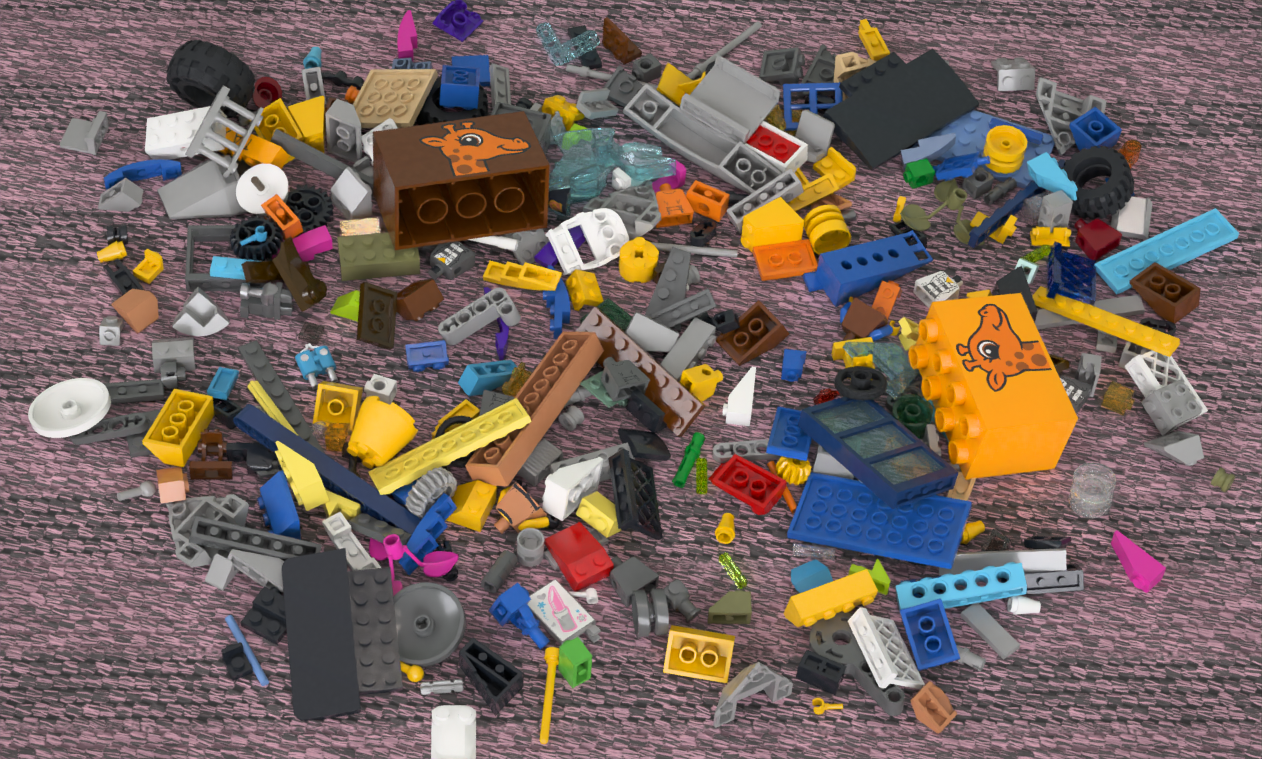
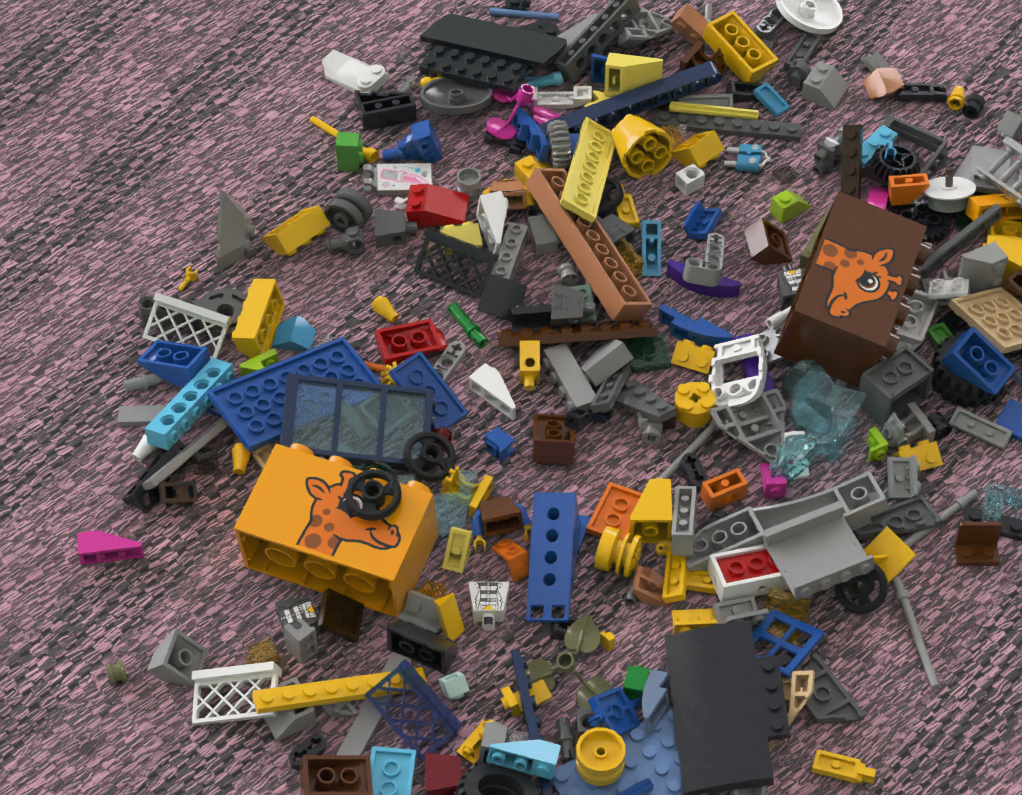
camera: 130 degrees right, 0 degrees up
(149, 267) = (924, 109): yellow bracket -> none
(200, 316) = (849, 112): light grey brick -> none
(298, 278) = (833, 165): dark brown slope -> none
(376, 316) = (760, 199): dark brown plate -> none
(377, 529) = (547, 113): dark grey plate -> none
(499, 571) = (463, 157): dark grey axle -> none
(524, 277) = (736, 316): yellow slope -> none
(646, 68) = (930, 555): dark grey brick -> none
(673, 207) = (742, 457): orange torso -> none
(701, 476) = (447, 326): clear neon green axle -> none
(731, 609) = (311, 270): olive slope -> none
(733, 570) = (346, 294): clear neon green axle -> none
(782, 66) = (857, 661): dark grey plate -> none
(820, 672) = (212, 281): black hinge -> none
(933, 707) = (122, 335): nougat slope -> none
(973, 330) = (373, 502): none -> black wheel
(1037, 254) = (468, 713): clear neon green axle -> none
(1092, 490) = (191, 557): clear wheel -> none
(1171, 406) = (210, 679): light grey bracket -> none

